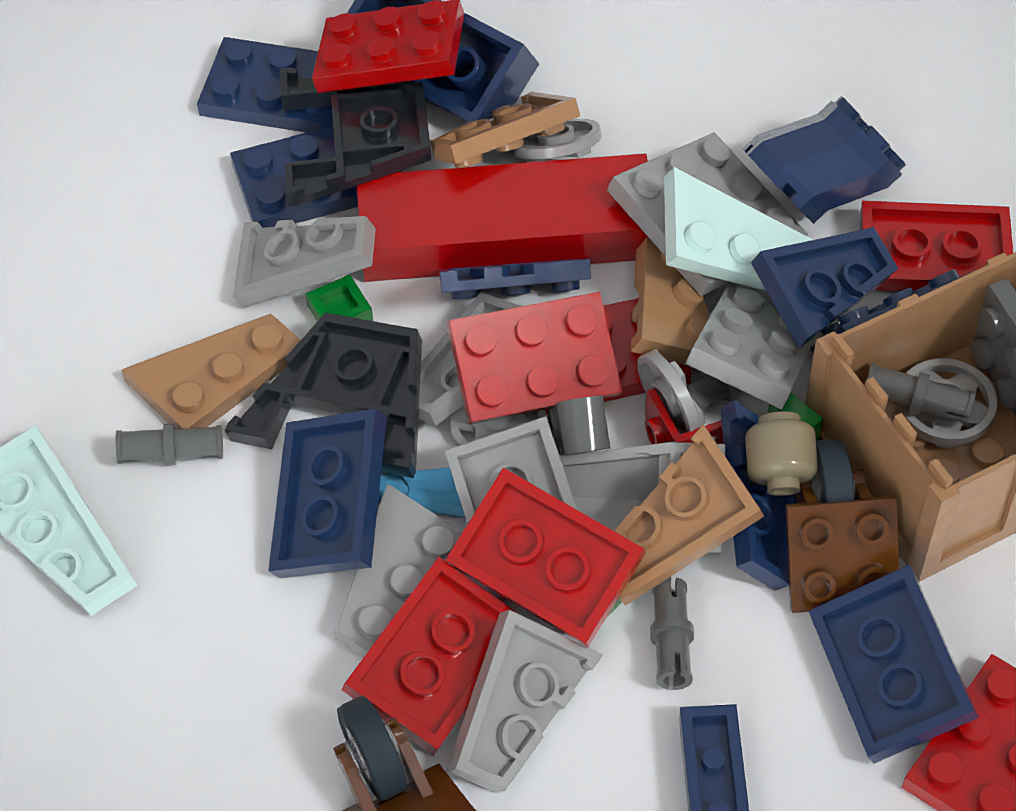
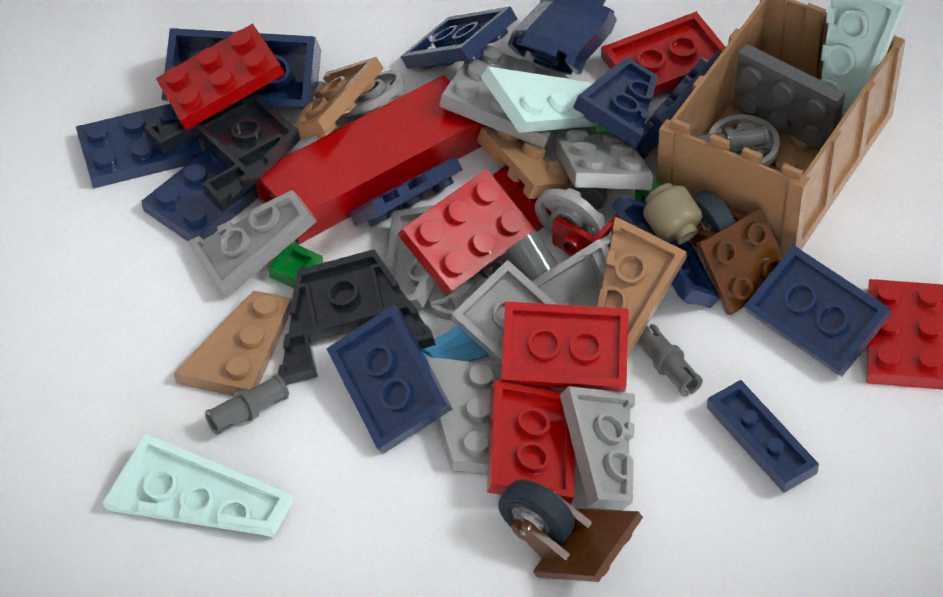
camera: 30 degrees left, 5 degrees down
(695, 116) = (460, 38): none -> dark blue plate

